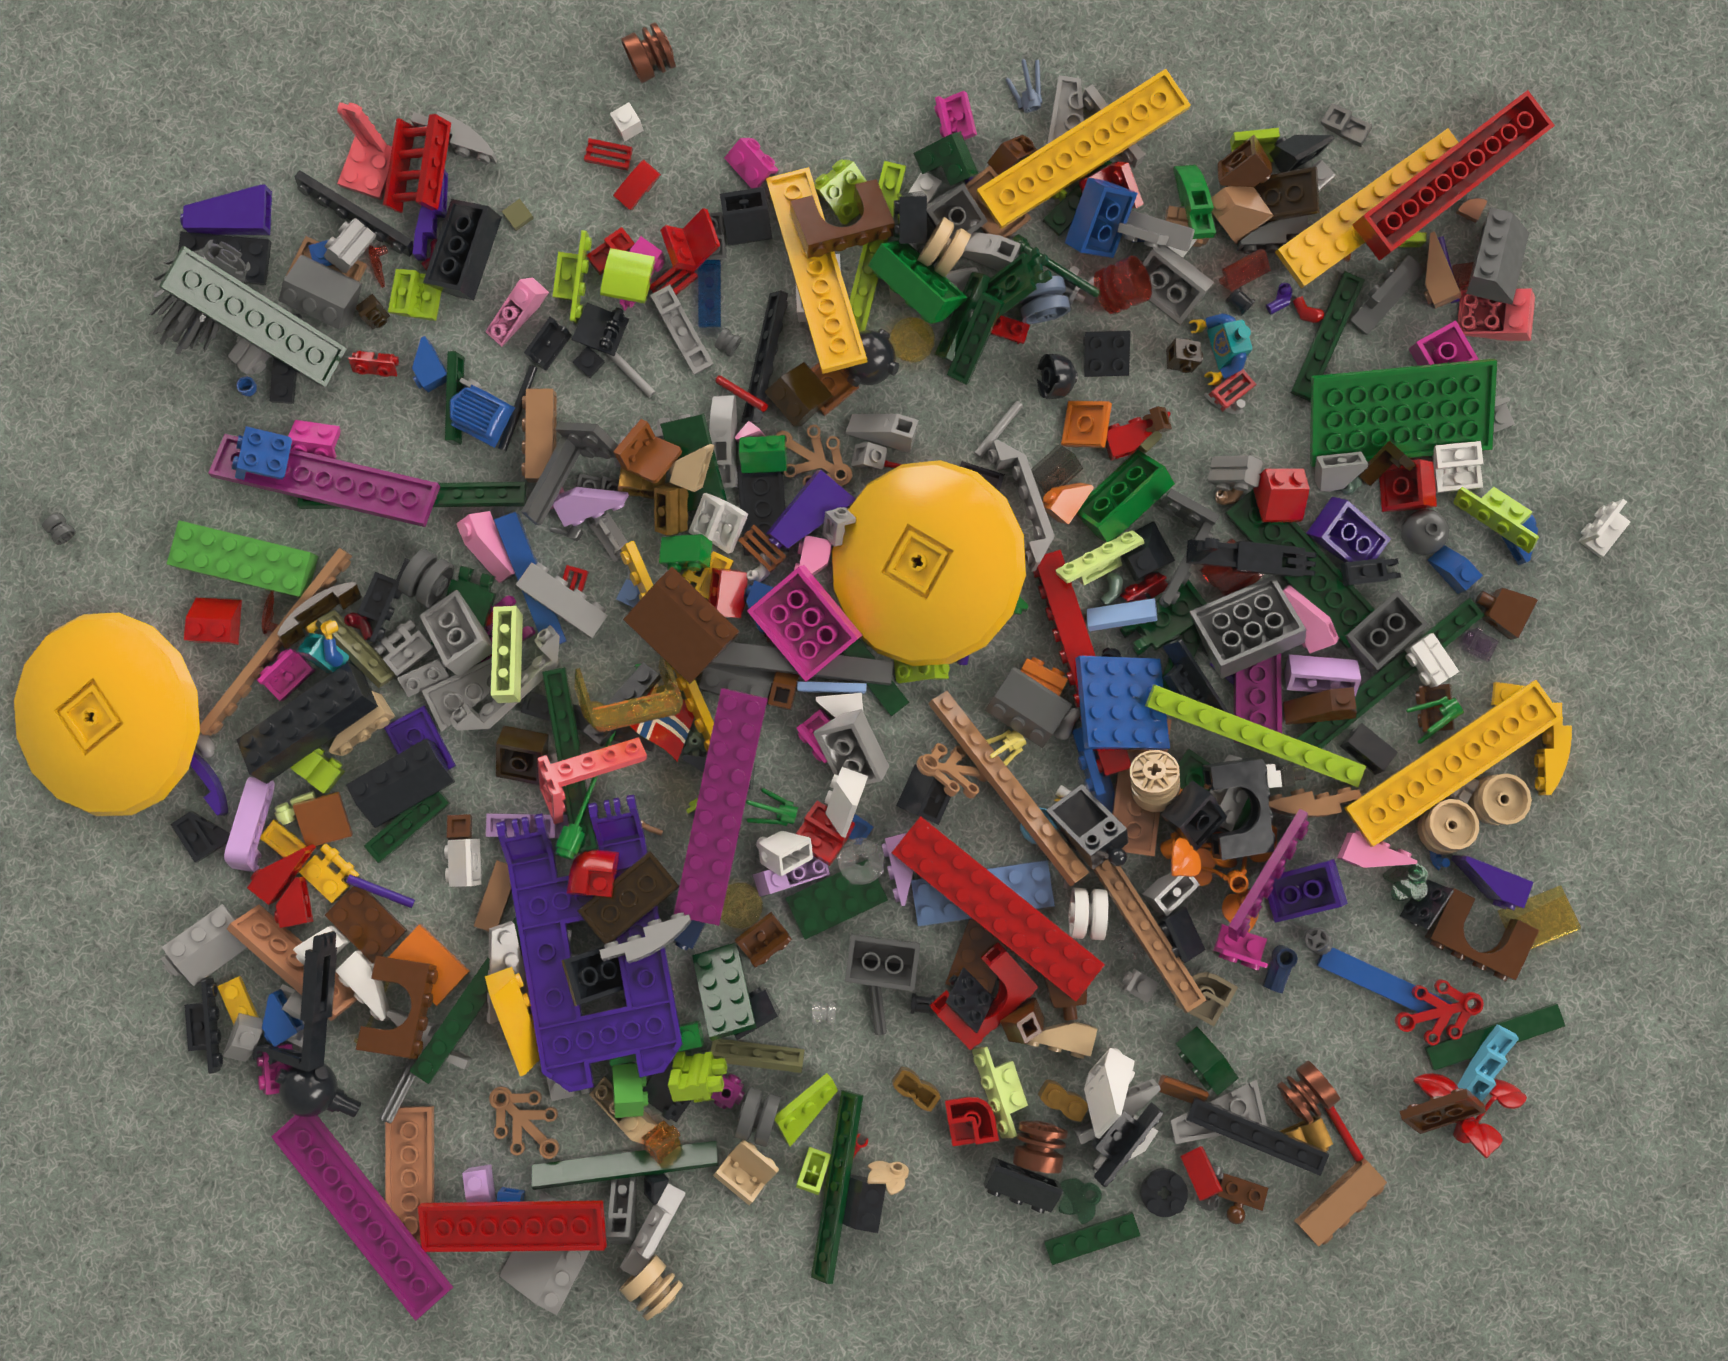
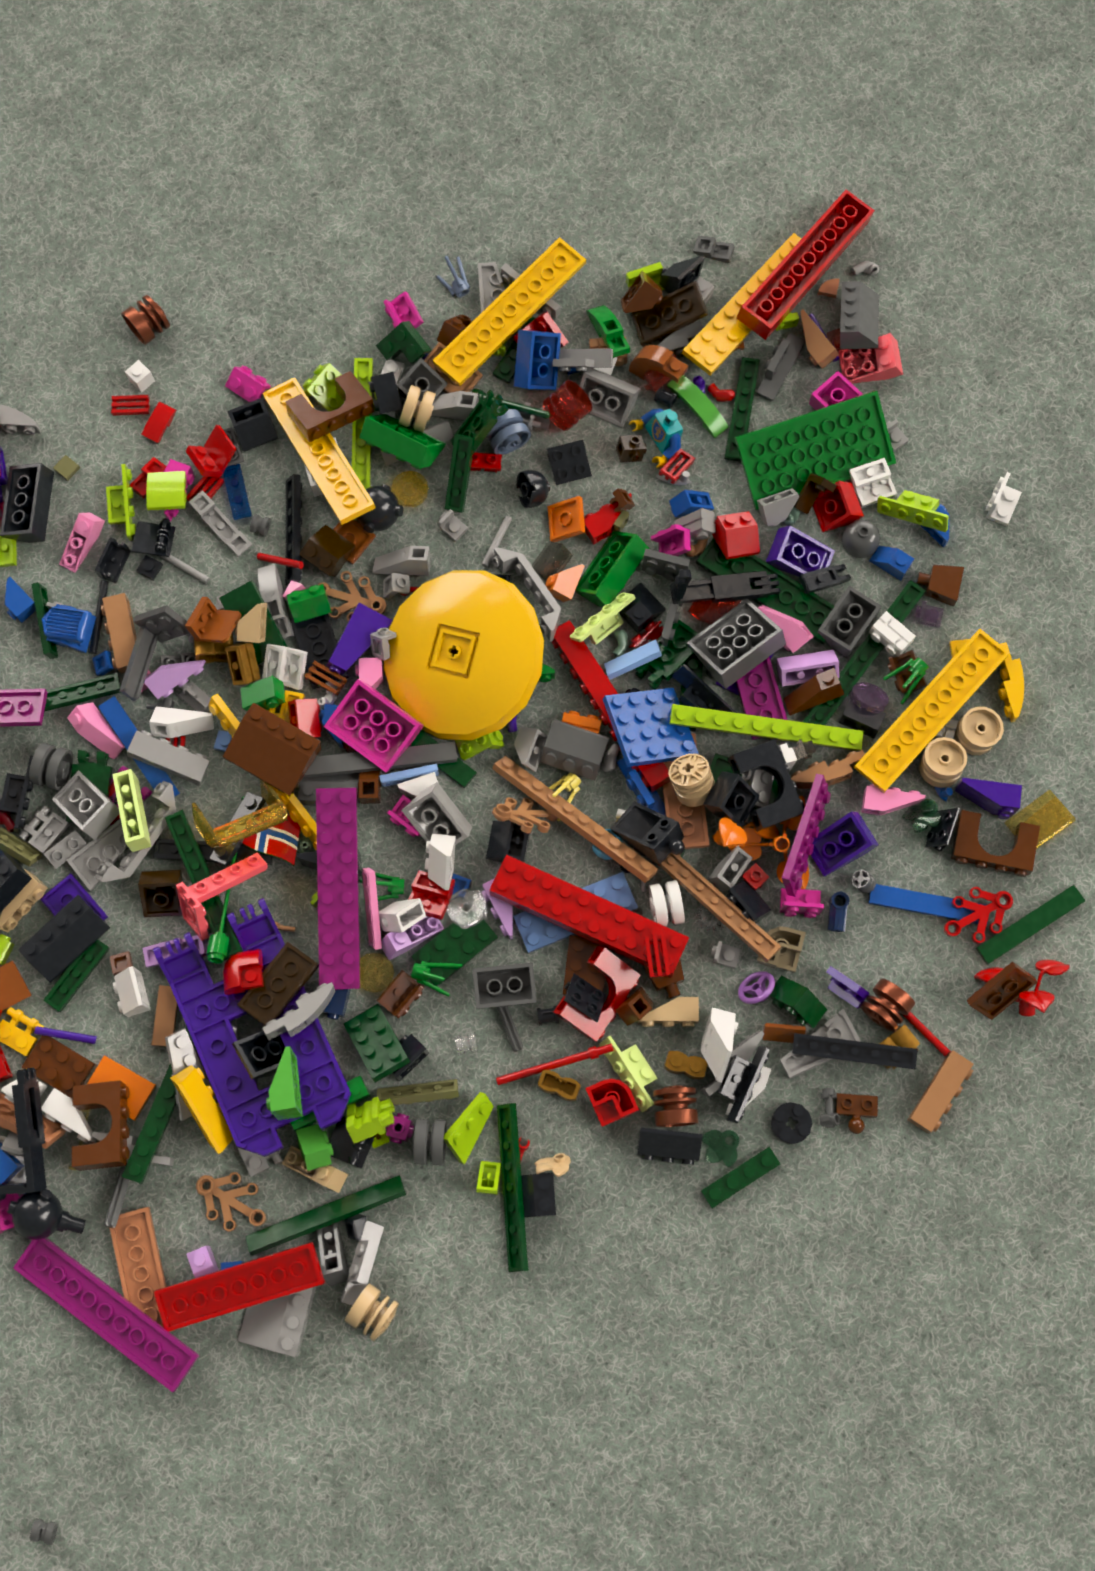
camera: 15 degrees left, 10 degrees down
(511, 466) = (103, 663): none -> blue tile
(582, 560) = (179, 722): none -> white slope
(609, 1031) = (285, 1088): none -> bright green slope
(661, 1141) = (352, 1185): clear orange brick -> none
(746, 1171) = (431, 1191): tan bracket -> none
(753, 836) = (371, 908): none -> bright pink tile
(792, 923) = (422, 973): none -> green plant
(951, 398) = (452, 525): none -> light grey bracket
(961, 317) = (442, 471): dark green plate -> none
(962, 1062) = (592, 1052): none -> red bar
(977, 690) = (530, 746): none -> light grey slope
(1061, 1000) = (655, 939): none -> red tile
(1166, 1035) = (757, 989): none -> medium lavender piece
(1197, 907) = (755, 877): none -> red bracket
(1201, 1173) = (817, 1096): red tile -> none
(1204, 484) = (673, 540): none -> dark pink bracket
(1237, 440) = (690, 501): none -> blue slope
(1240, 211) = (645, 328): medium nougat slope -> none
(1244, 254) = (659, 359): none -> dark orange arch
(1267, 1060) = (846, 988): none -> bracket
(1278, 318) = (700, 405): none -> bright green slope
(1384, 727) = (869, 696): none -> clear purple tile
(1488, 1062) = (1031, 942): medium azure slope -> none
(1523, 193) = (865, 267): none -> light grey arm

